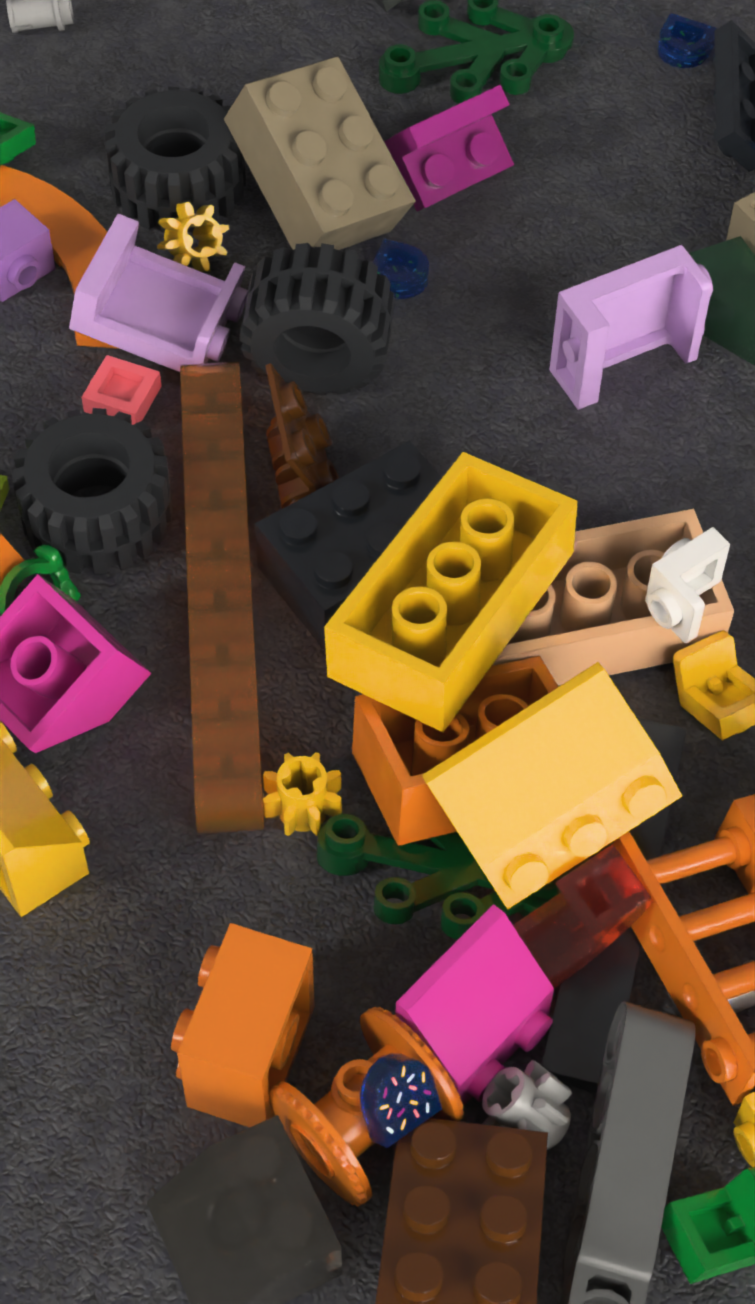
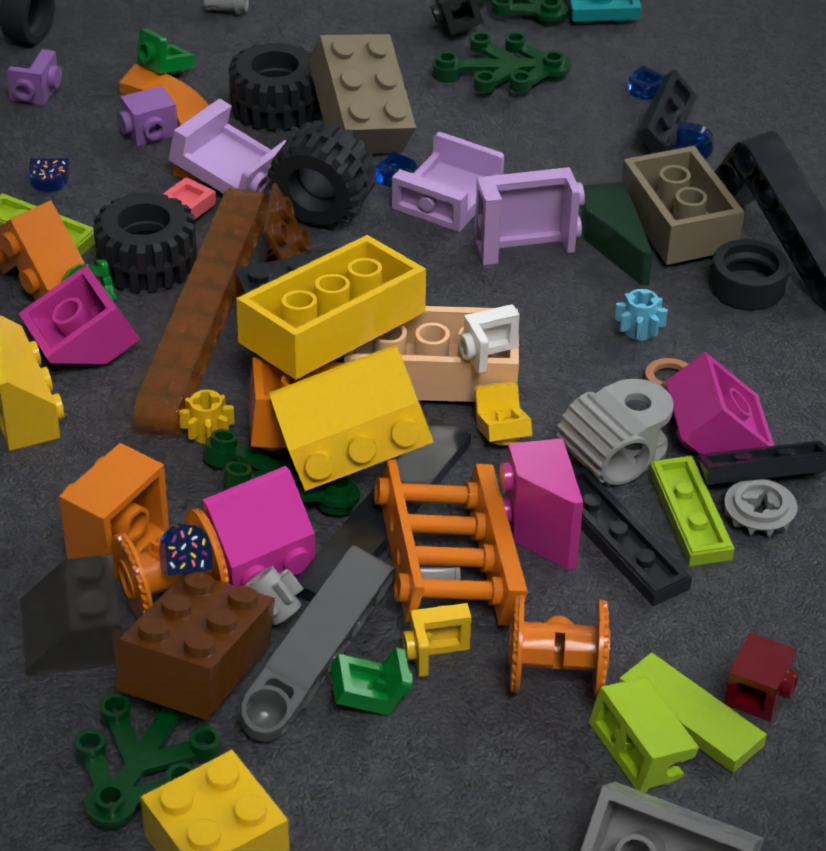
camera: 15 degrees right, 15 degrees down
(206, 231) = (260, 121): yellow gear -> none
(452, 149) = (456, 106): magenta bracket -> none
(484, 279) = (446, 182): none -> lavender panel
(586, 917) = (360, 497): clear red slope -> none

